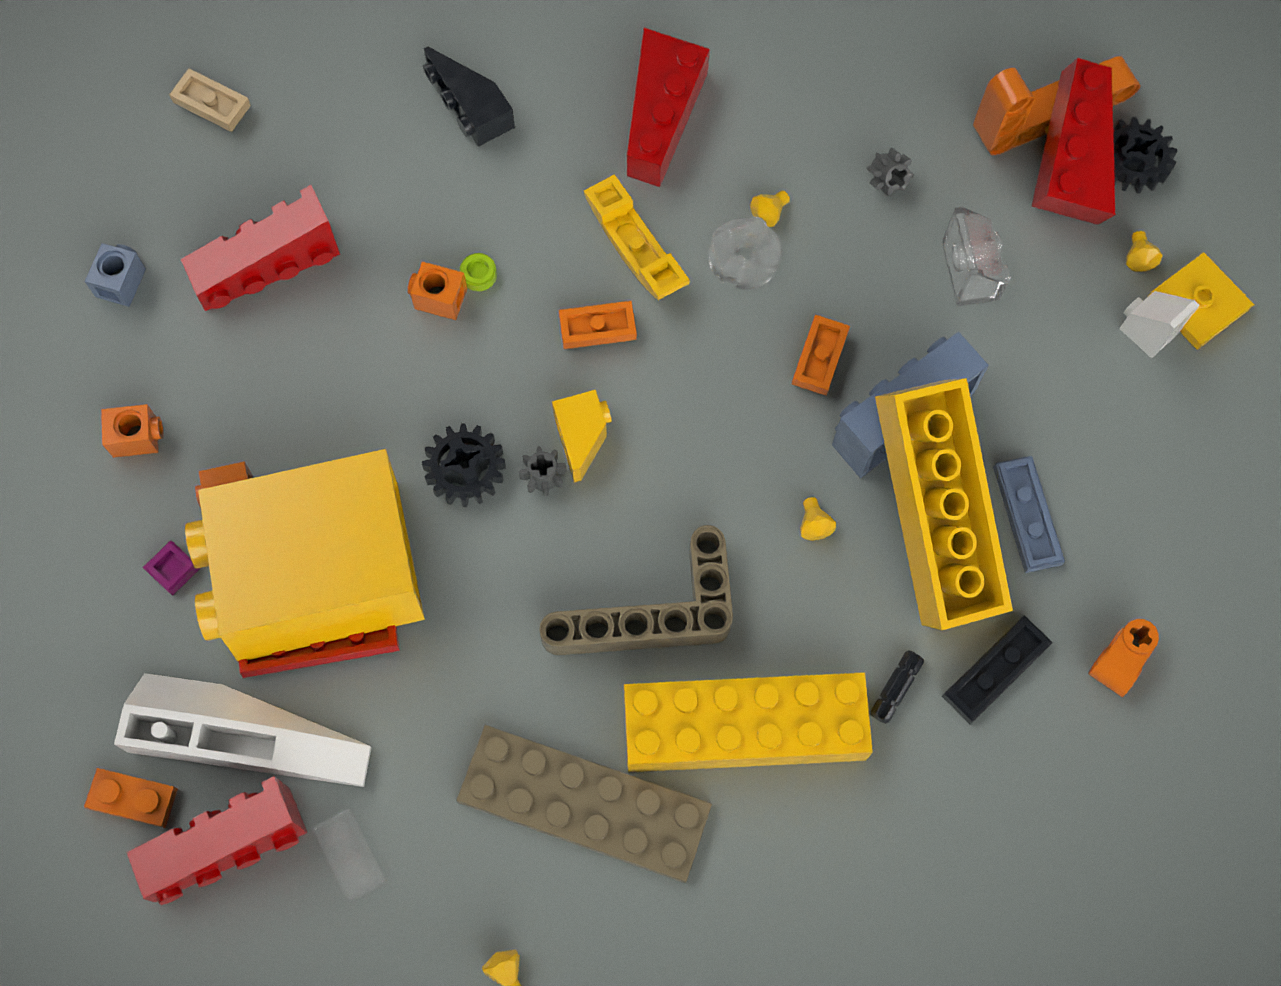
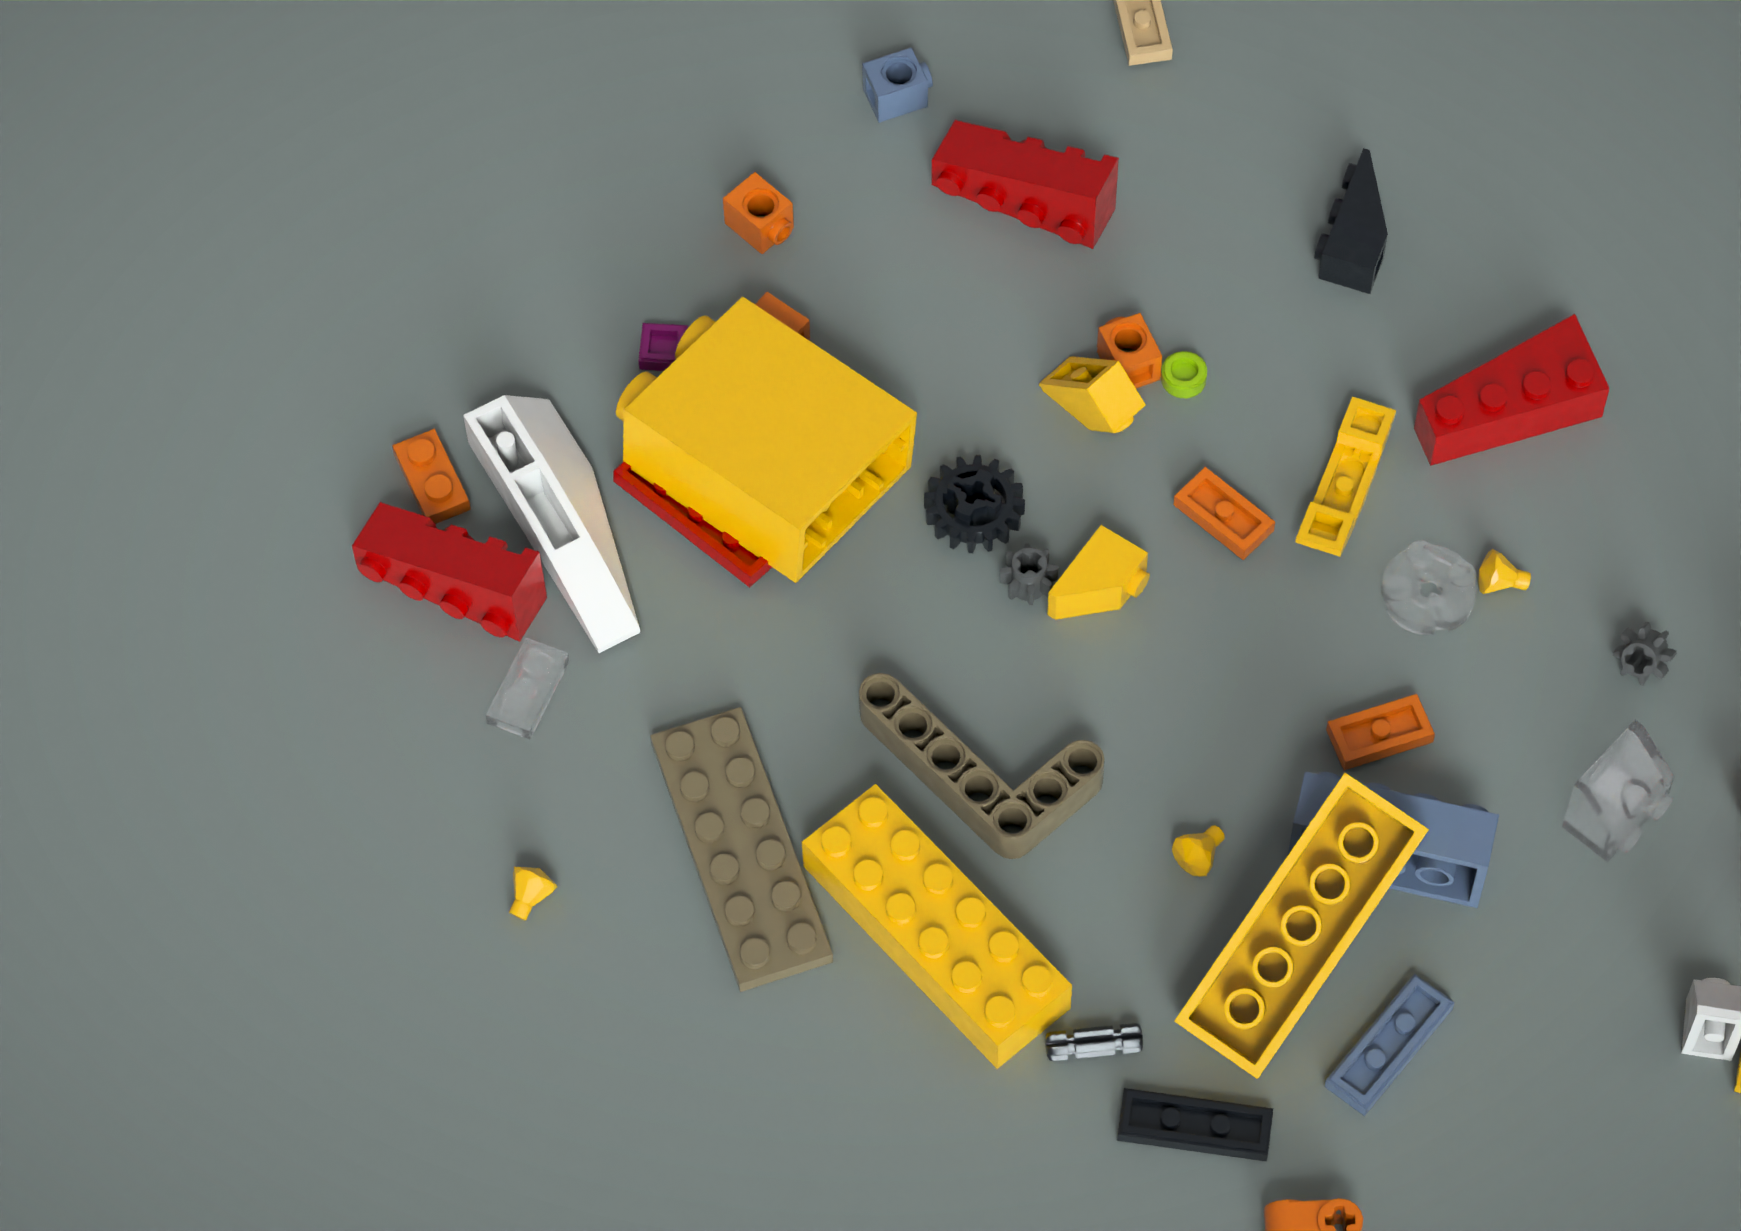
camera: 55 degrees right, 10 degrees down
(447, 332) = (1094, 393): none -> yellow slope

